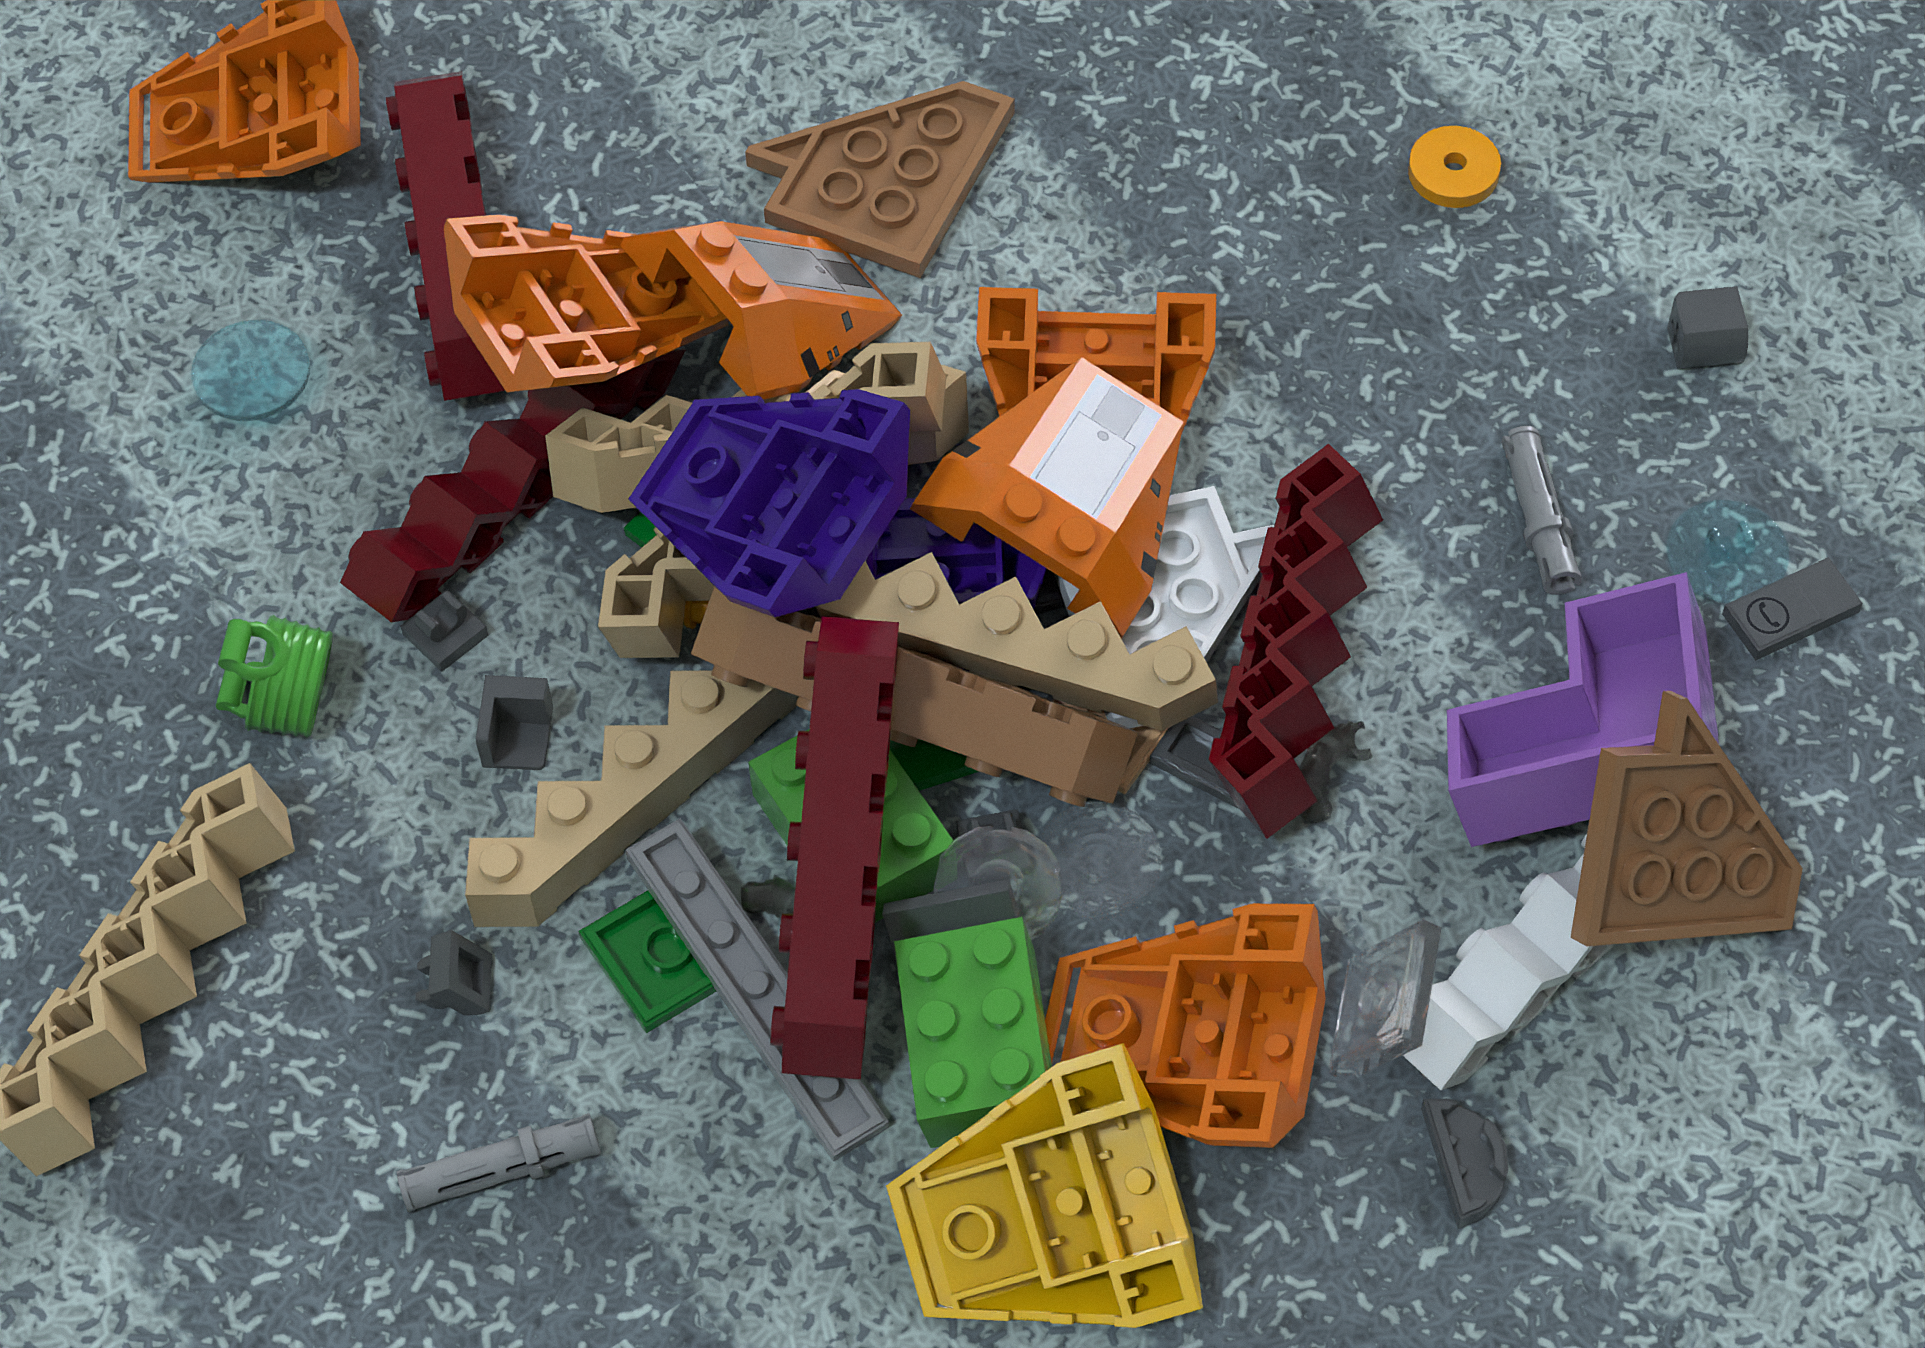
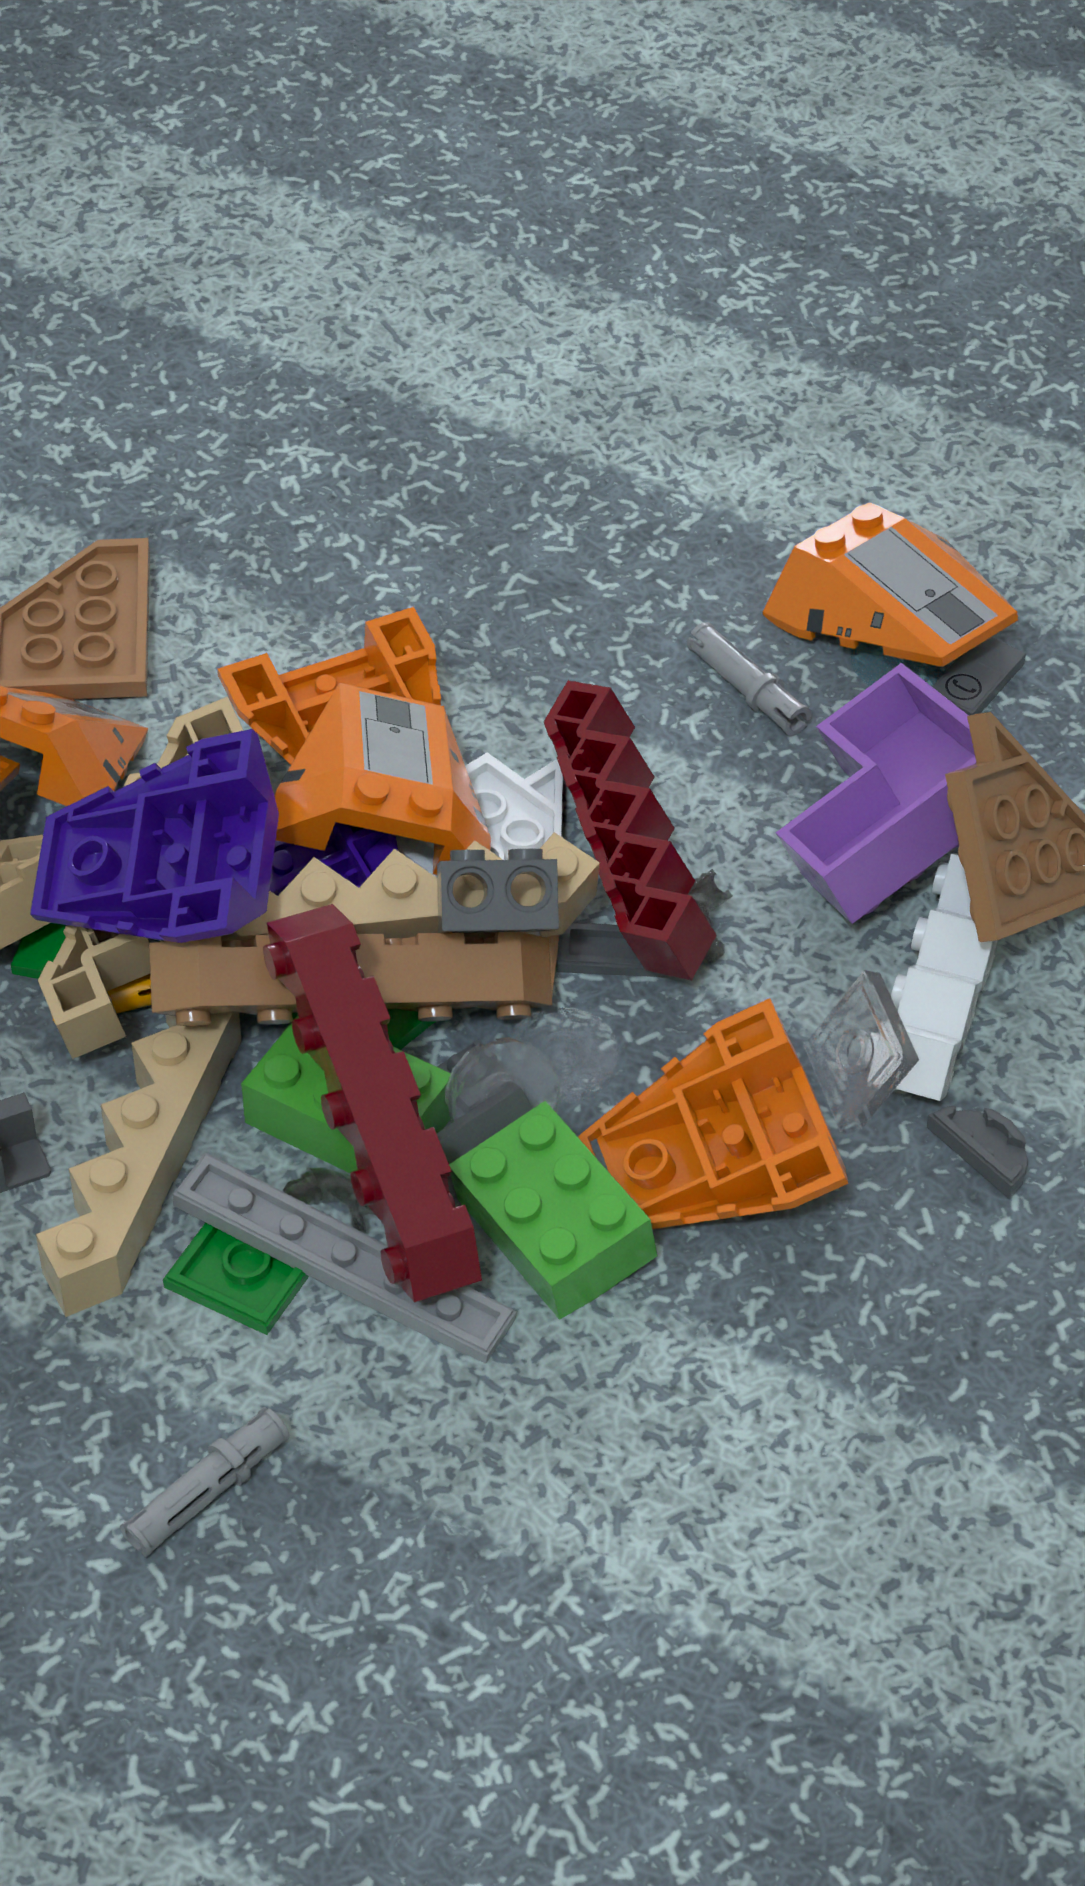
camera: 30 degrees left, 10 degrees down
(457, 975) = (80, 1353): dark grey tile -> none
(1053, 1207) = (695, 1308): yellow wedge -> none
(1078, 692) = (498, 908): none -> dark grey brick
(1454, 187) = (513, 484): light orange piece -> none
(1708, 328) = (794, 509): dark grey piece -> none
(1753, 466) = (887, 587): none -> orange wedge

